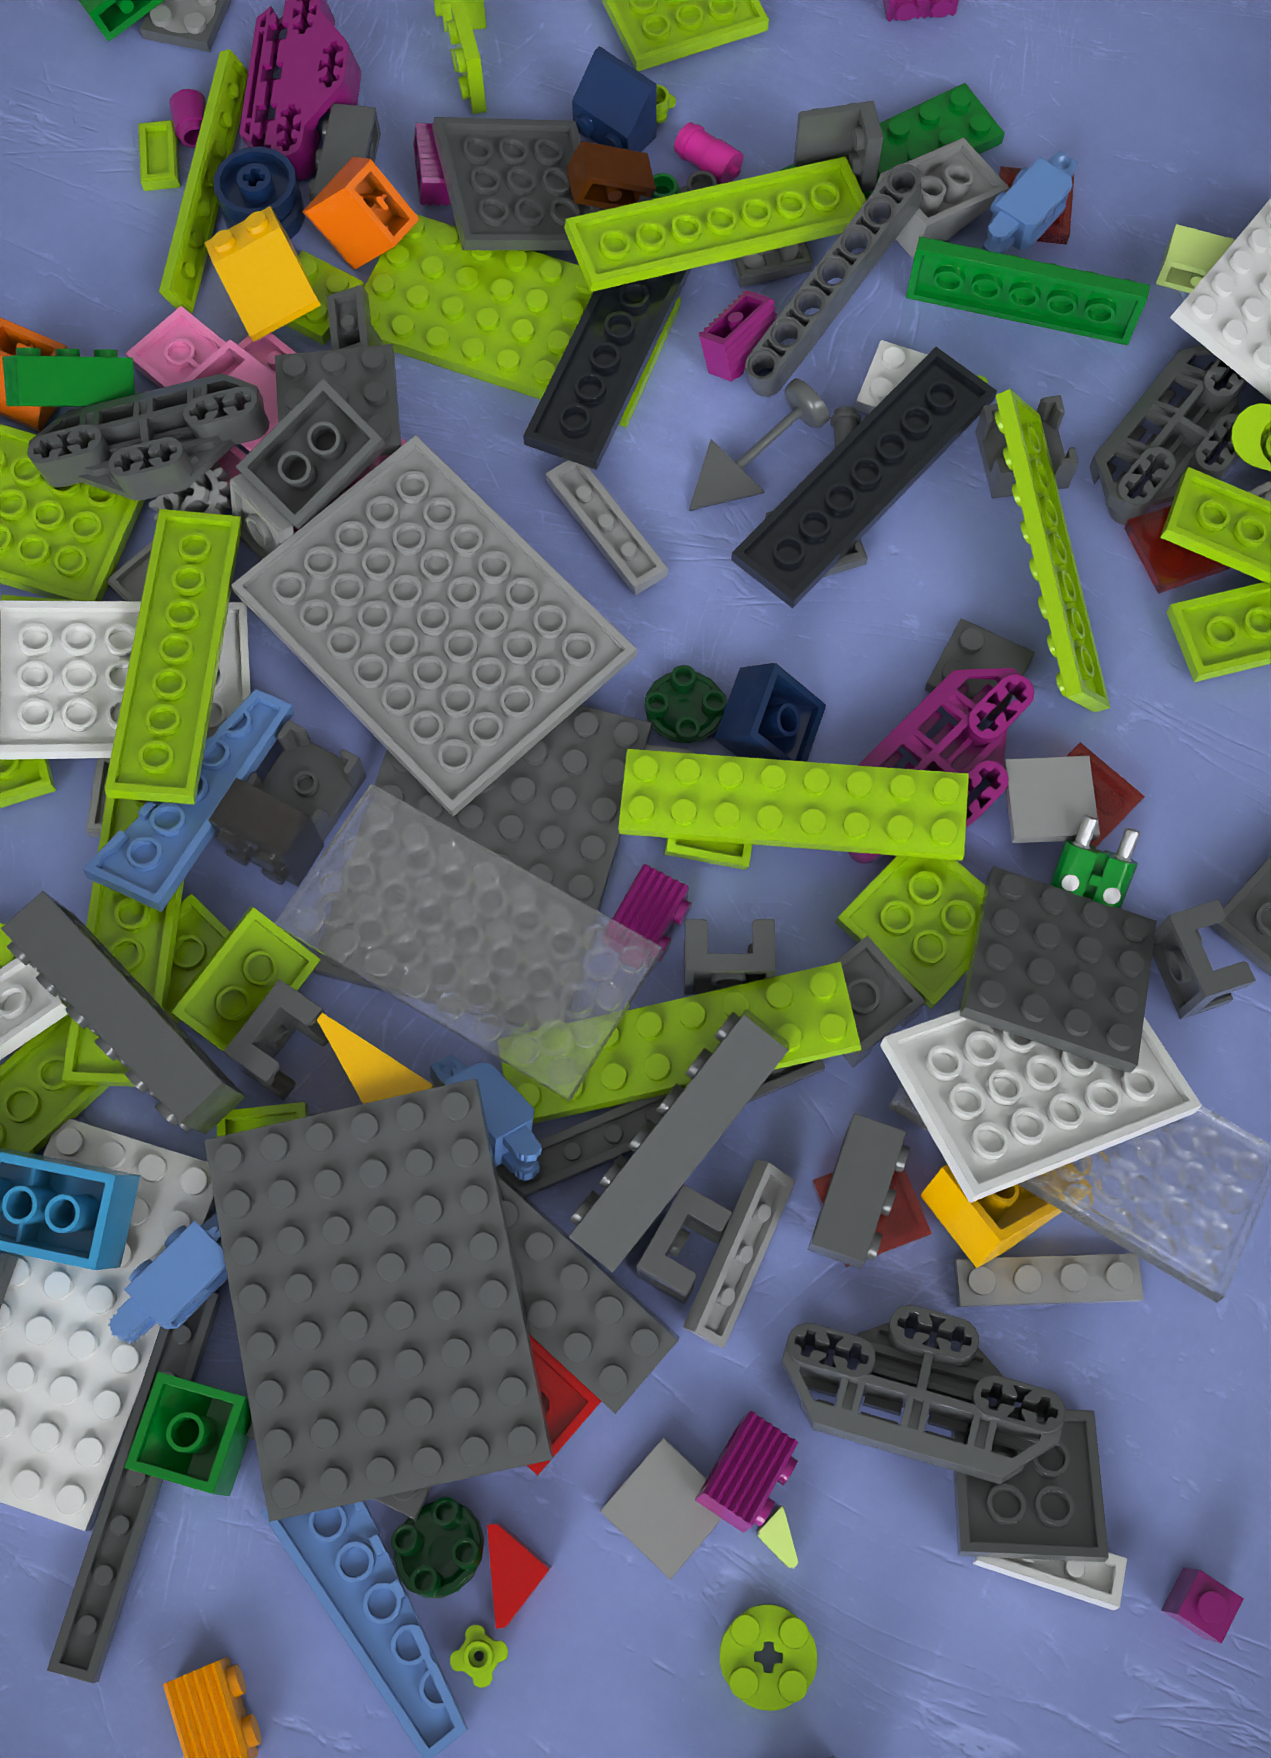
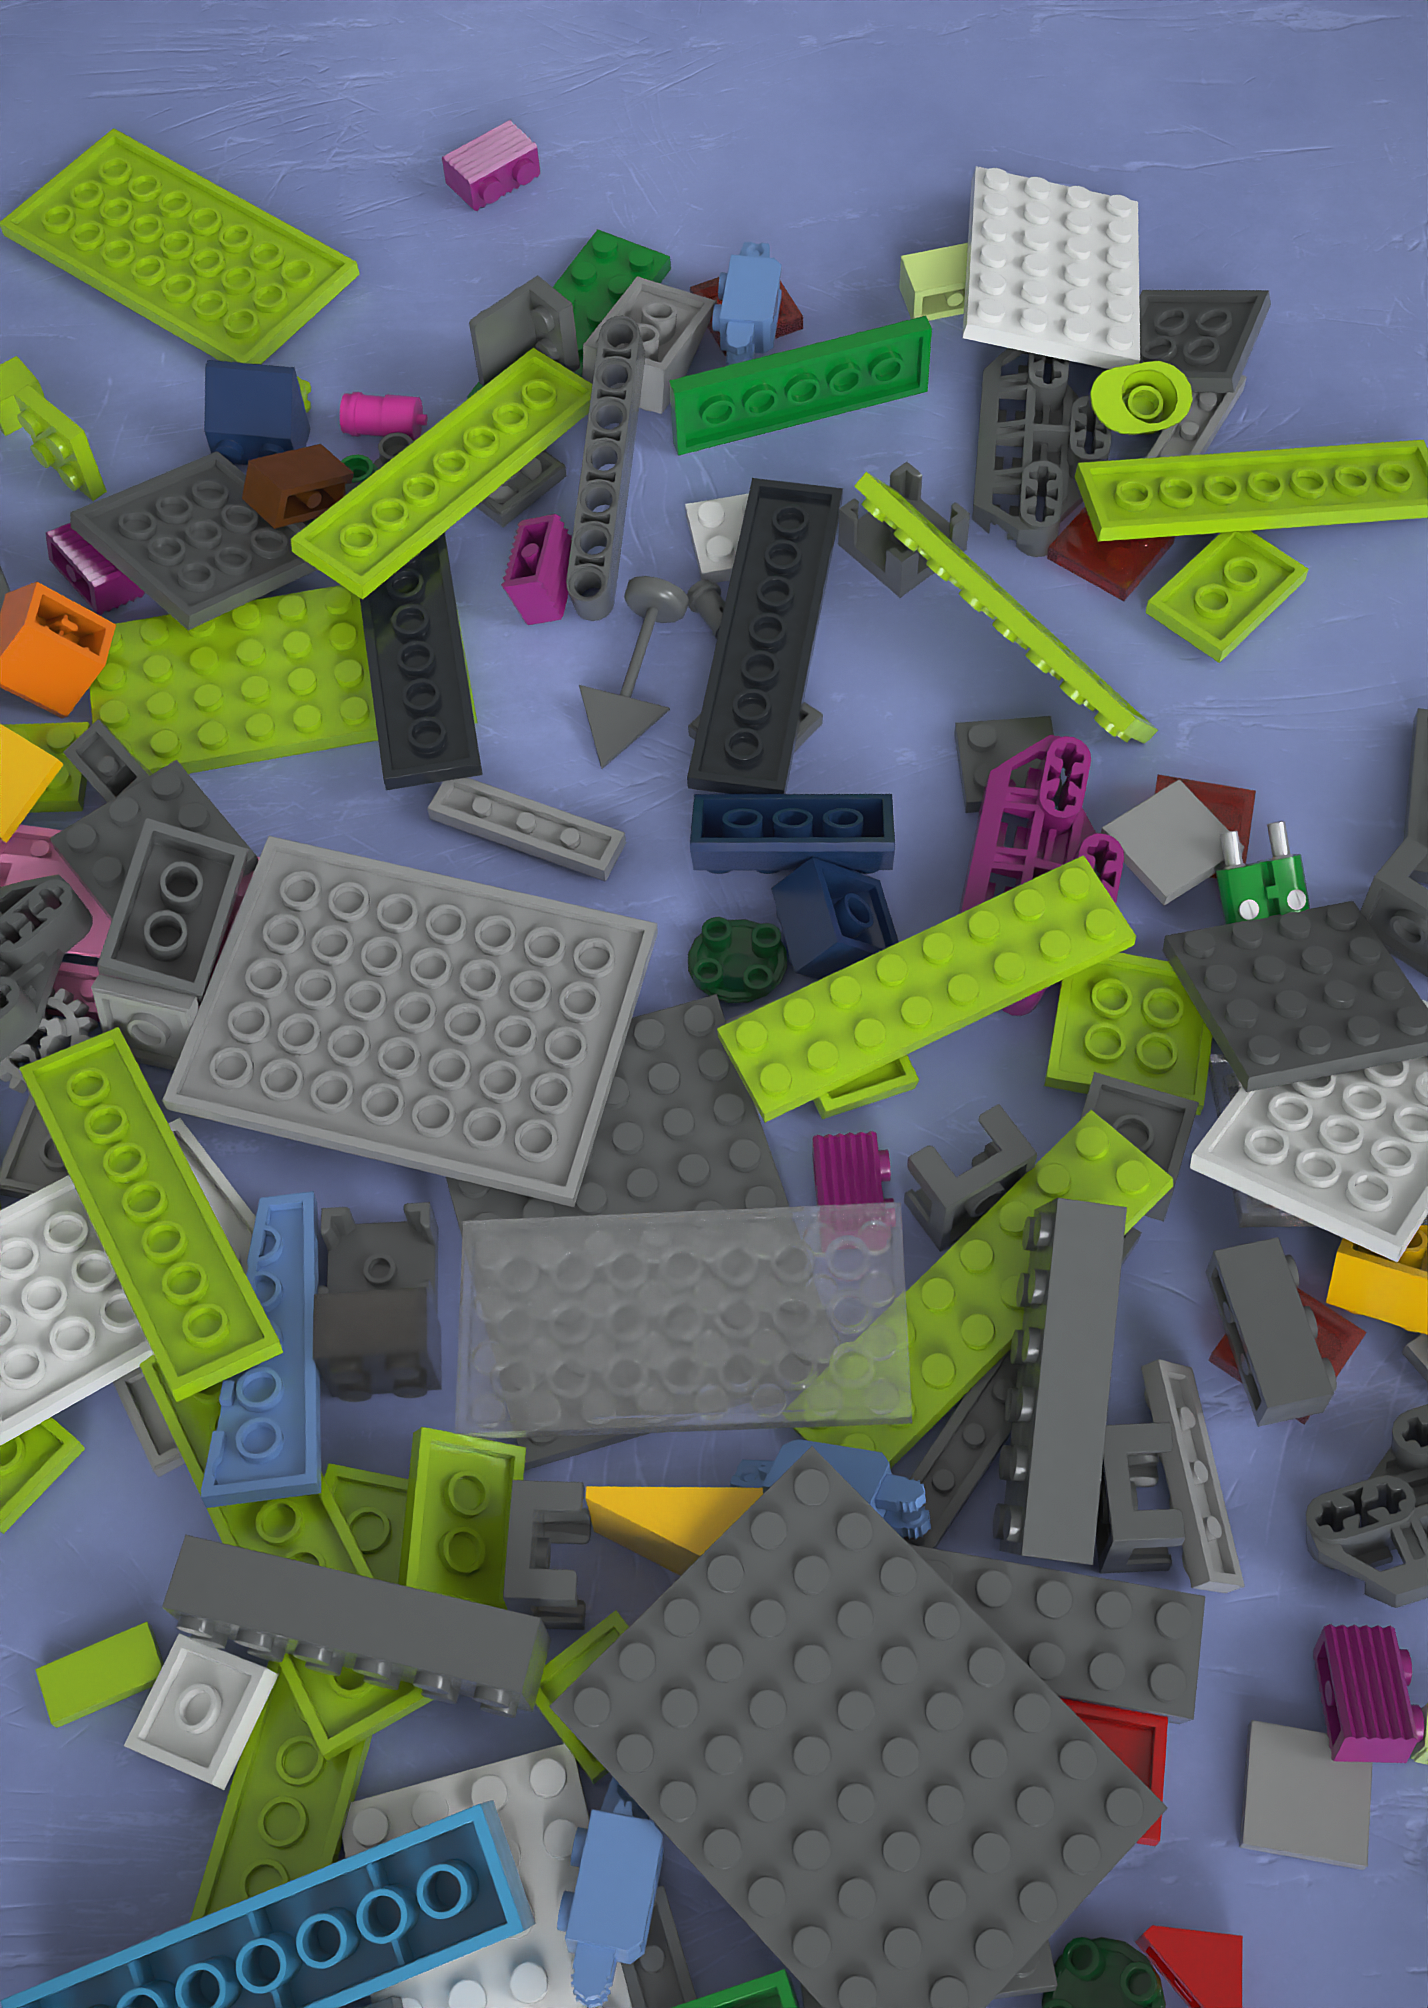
camera: 30 degrees left, 10 degrees down
(780, 634) = (789, 829): none -> dark blue slope

